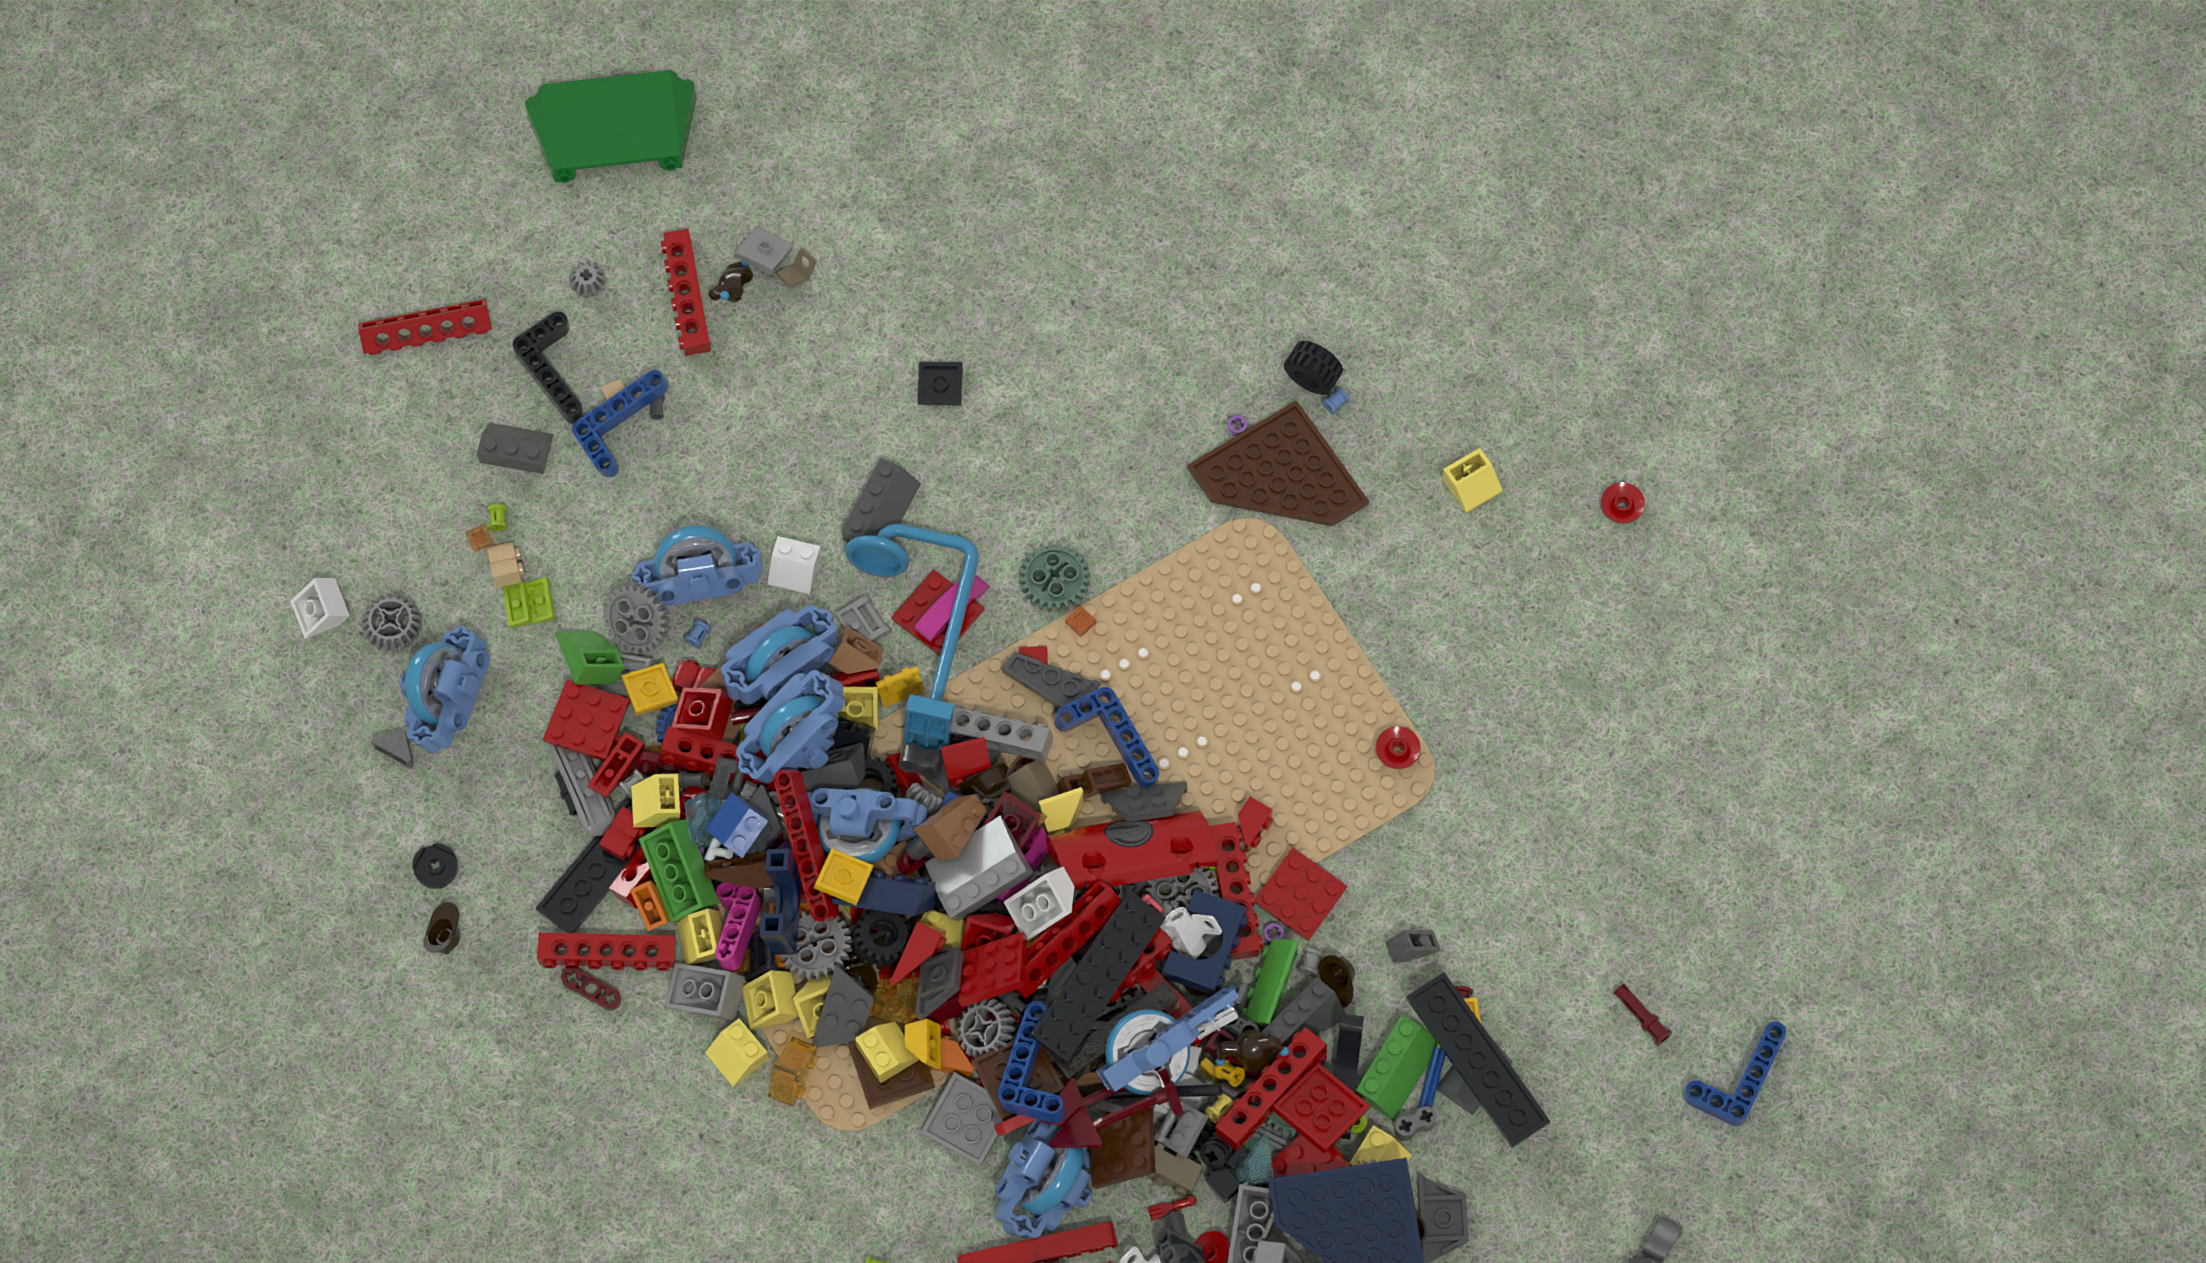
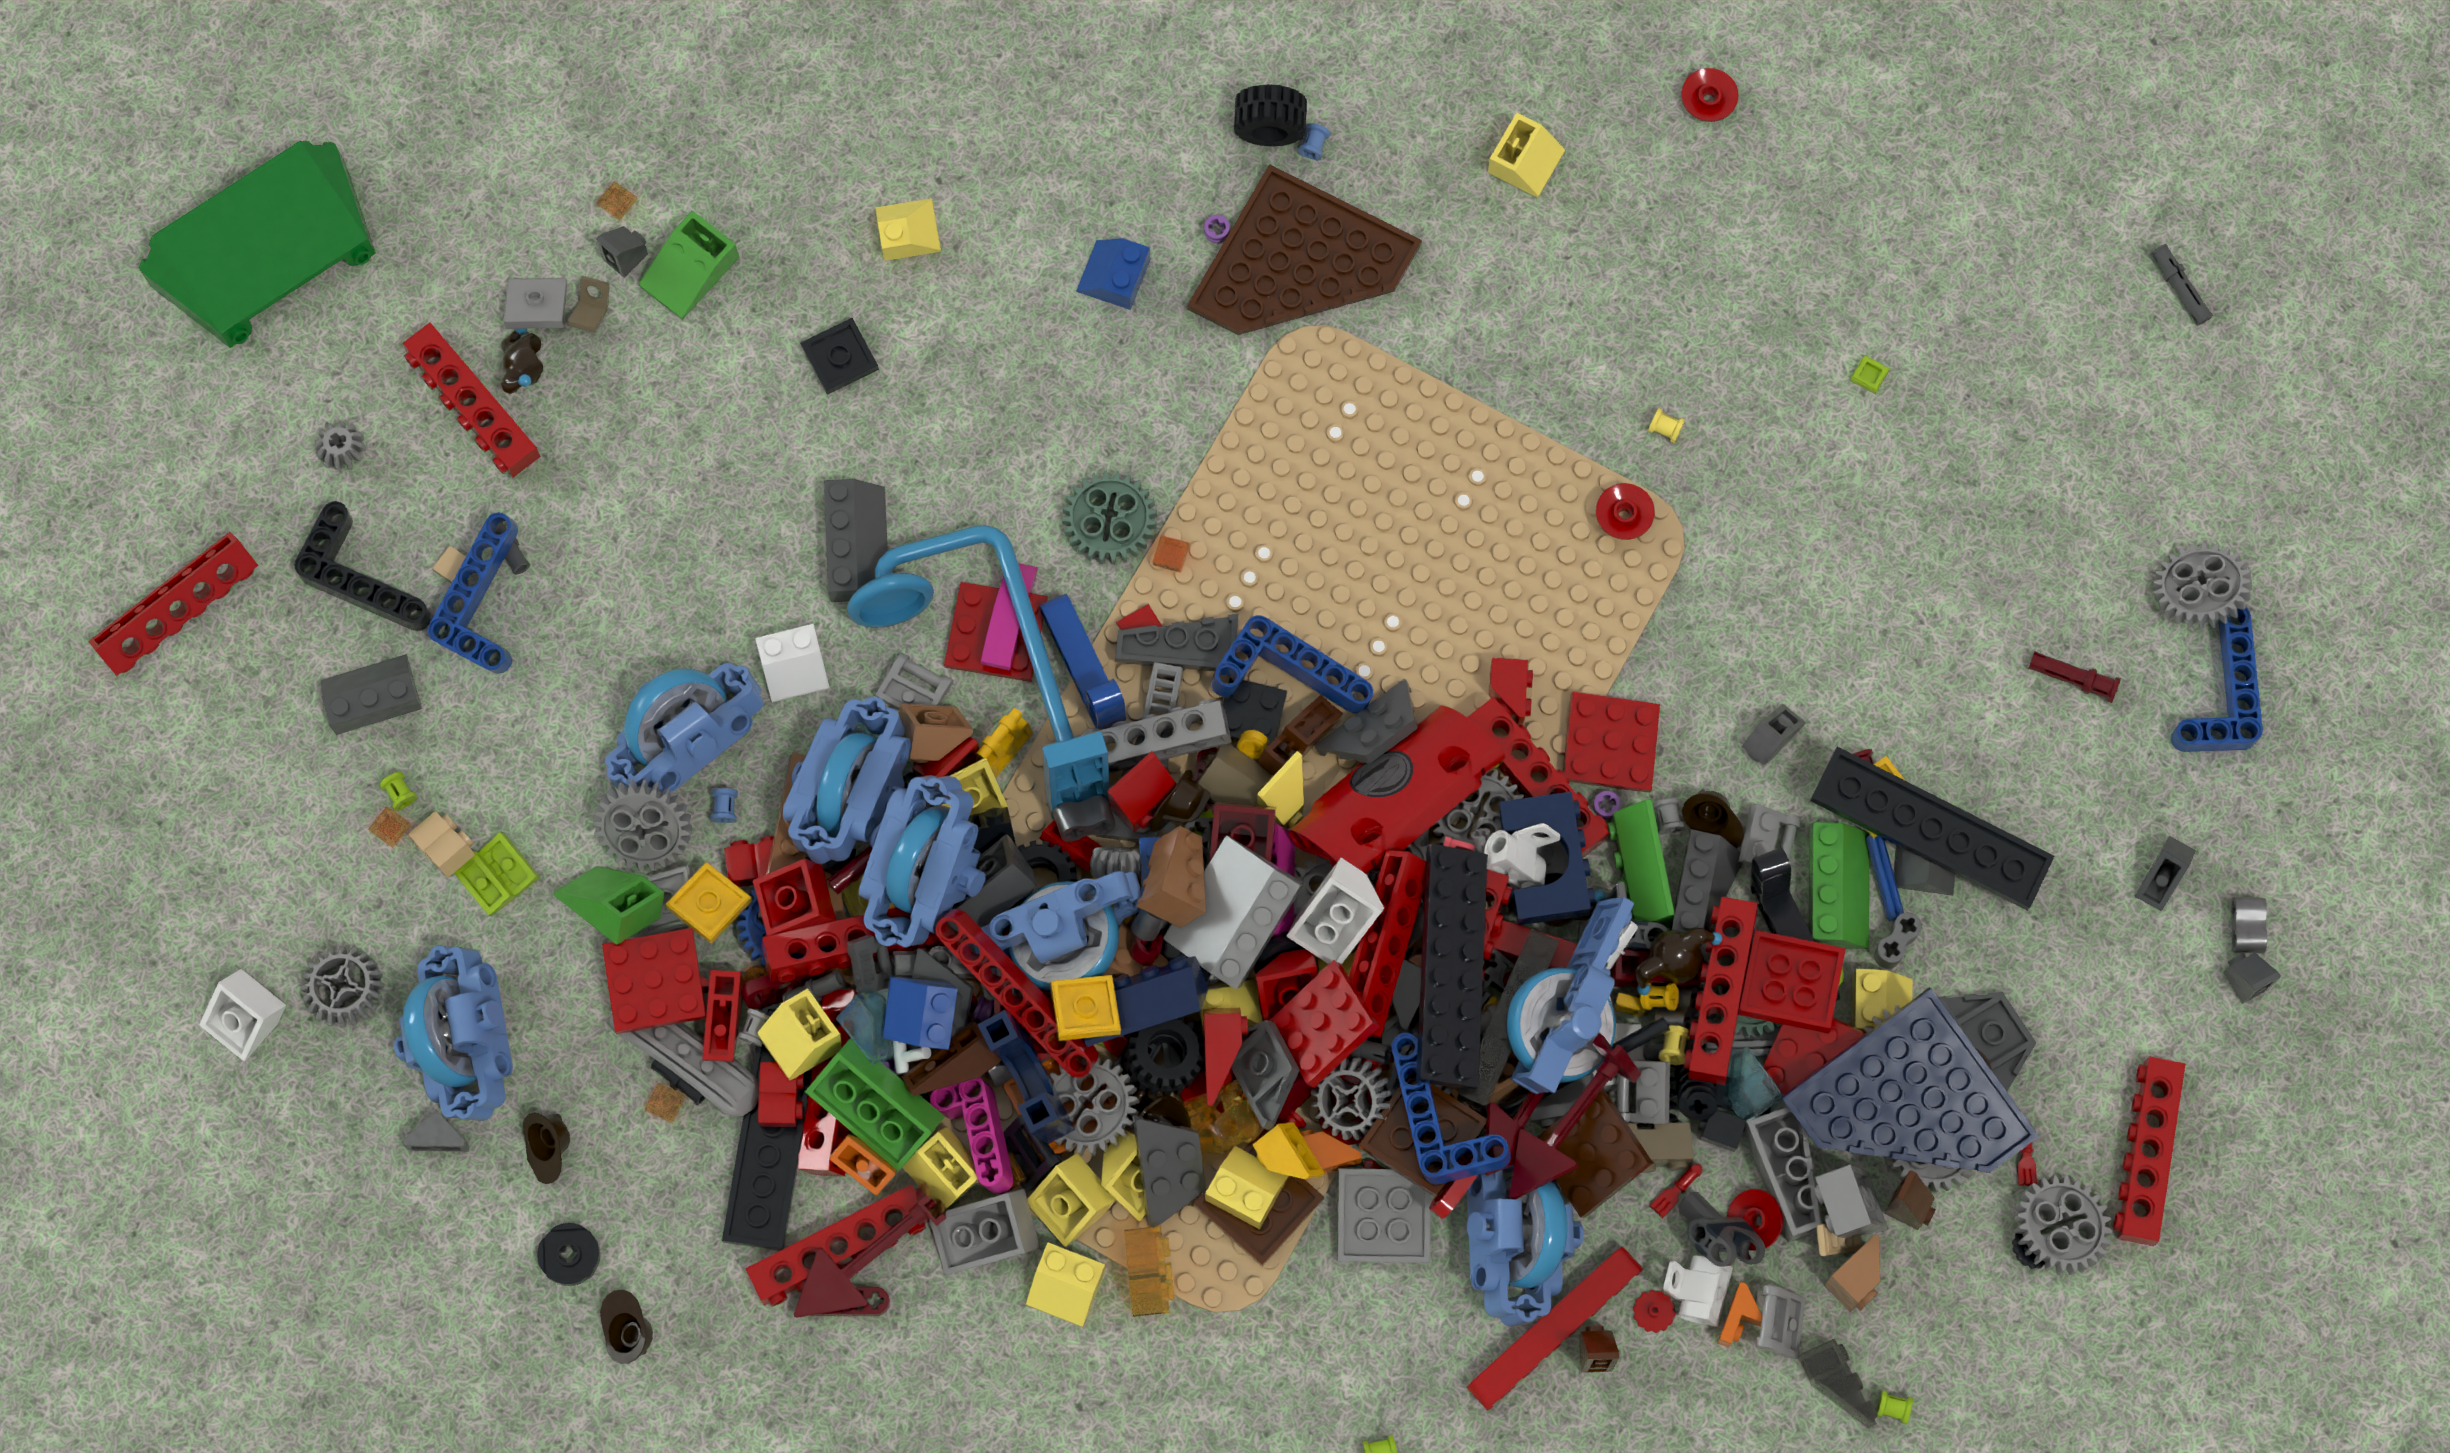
camera: 30 degrees left, 5 degrees up
(460, 789) = (545, 1142): none -> dark brown piece
(551, 803) = (665, 1103): none -> clear orange tile
(585, 972) = (830, 1287): none -> dark red piece
(839, 243) = (622, 249): none -> dark grey slope
(855, 211) = (616, 200): none -> clear orange tile
(876, 275) = (689, 265): none -> bright green slope
(977, 682) = (1098, 693): none -> blue beam
(1021, 698) = (1166, 671): none -> light grey slope
(1032, 323) = (908, 229): none -> light yellow slope
(1059, 769) = (1252, 743): none -> yellow tile
(1073, 751) = (1254, 708): none -> black plate
(1153, 420) = (1115, 271): none -> blue slope
(1365, 1005) = (1762, 832): none -> light grey plate
(1462, 706) = (1666, 425): none -> light yellow bush
(1622, 744) = (1869, 374): none -> lime tile
(1625, 1175) = (2165, 873): none -> dark grey slope
(1765, 999) = (2203, 585): none -> light grey gear
(1874, 786) = (2179, 281): none -> dark grey pin

